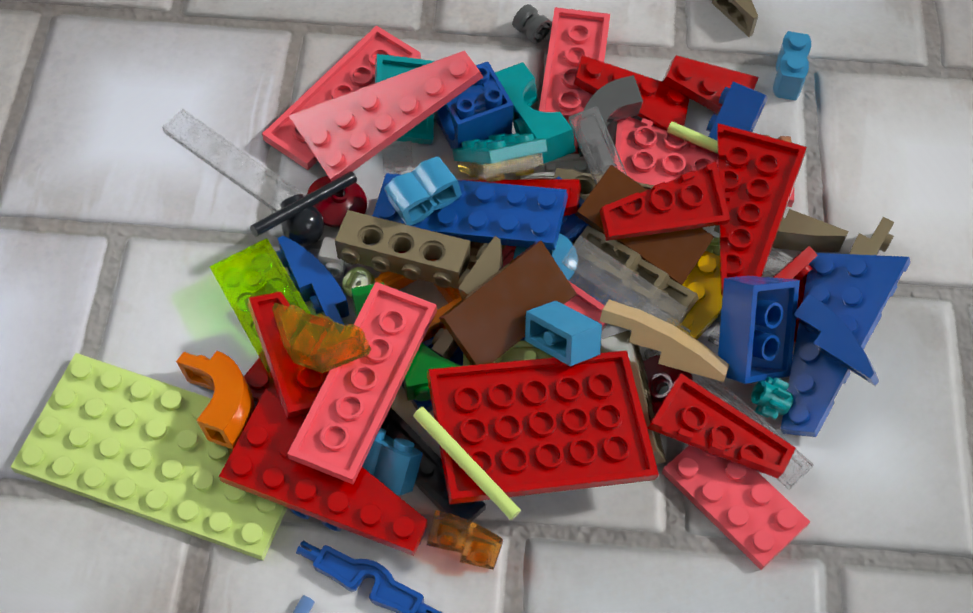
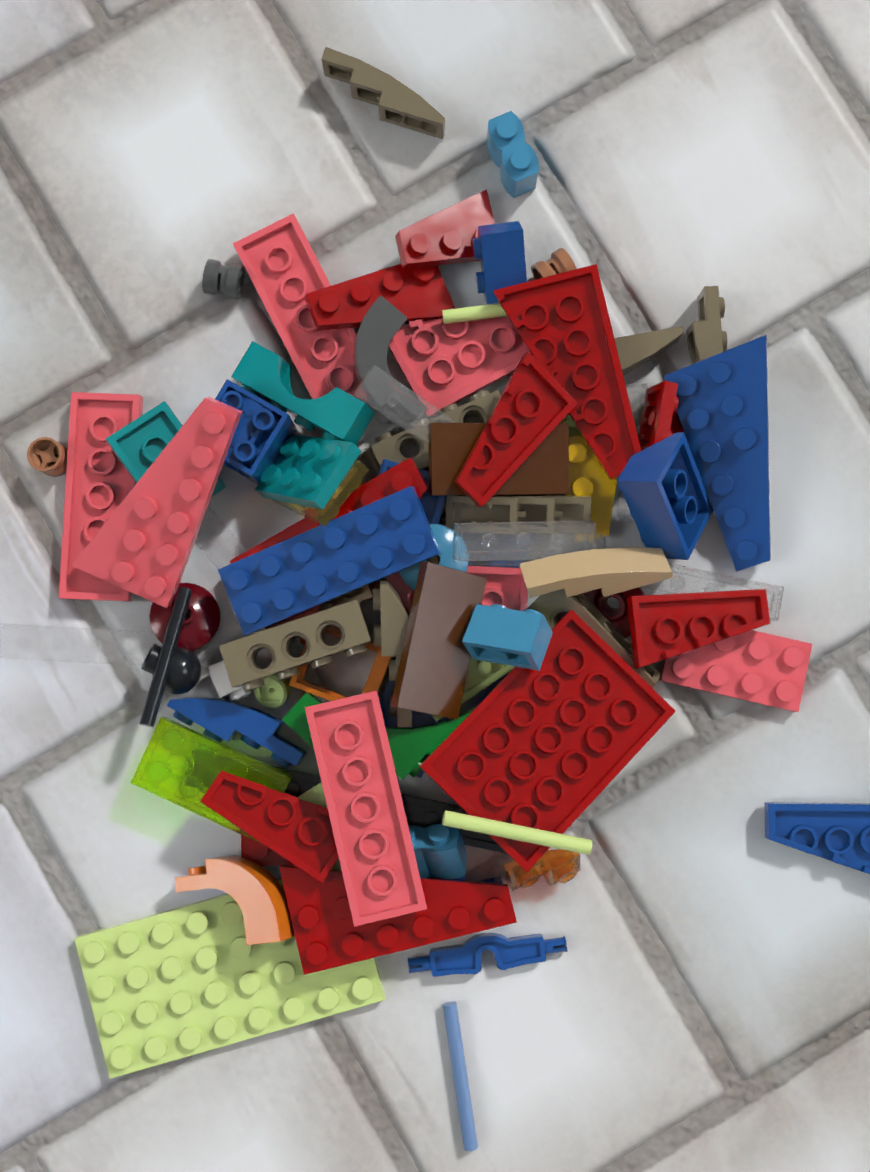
camera: 30 degrees left, 25 degrees up
(318, 340) = (298, 810): clear yellow slope -> none
(328, 50) = (43, 452): none -> nougat wheel
(423, 190) = (275, 580): dark azure brick -> none
(771, 397) = (715, 551): teal gear -> none
(835, 338) = (749, 466): blue slope -> none

